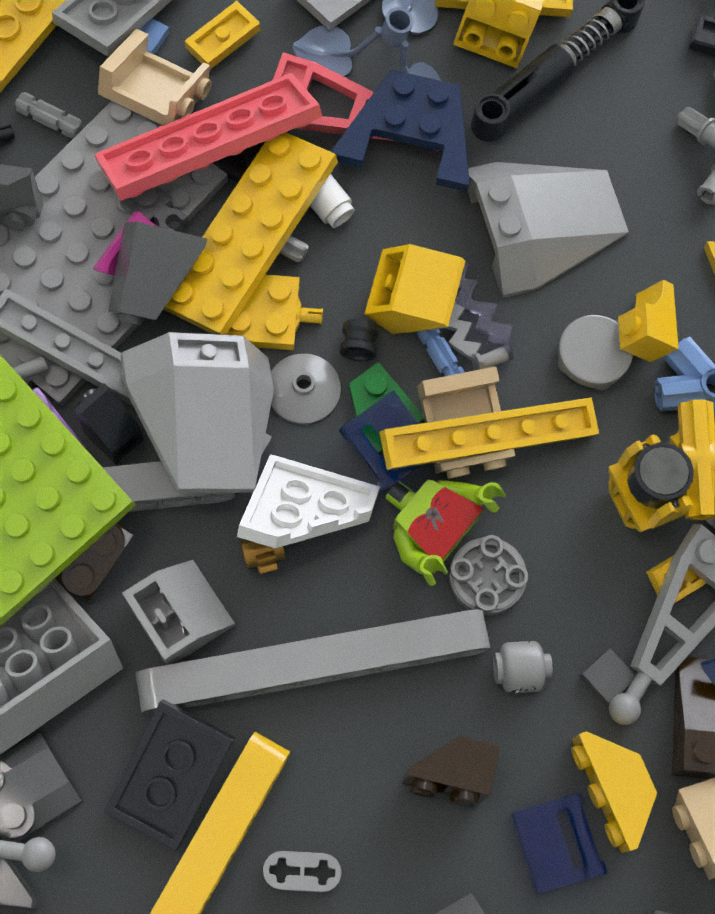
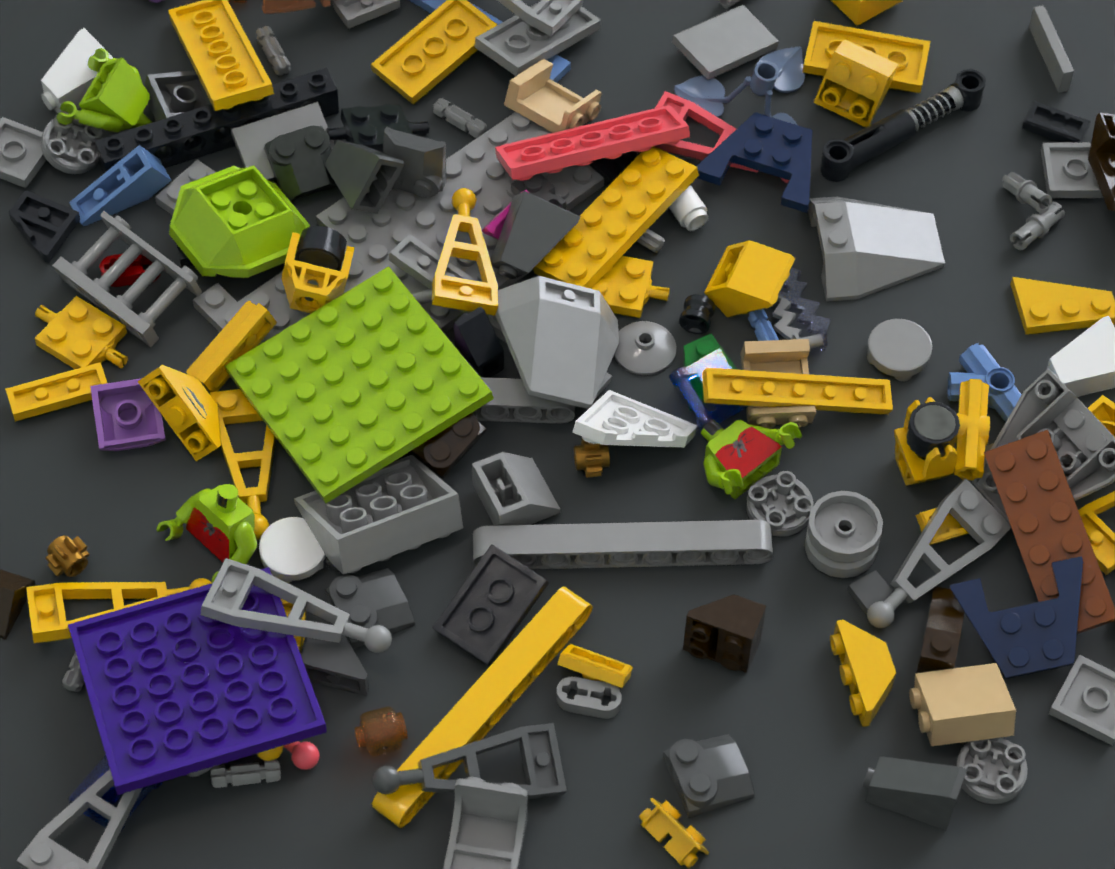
camera: 15 degrees right, 15 degrees down
(78, 363) = (459, 292): none -> yellow plate
(222, 35) = (616, 73): yellow plate -> none
(304, 832) = (595, 666): none -> yellow plate
(521, 667) = (797, 572): light grey head -> none
(546, 848) = (797, 708): clear blue plate -> none
(583, 594) = (843, 534): none -> light grey wheel
(651, 326) = (948, 330): yellow arch -> none

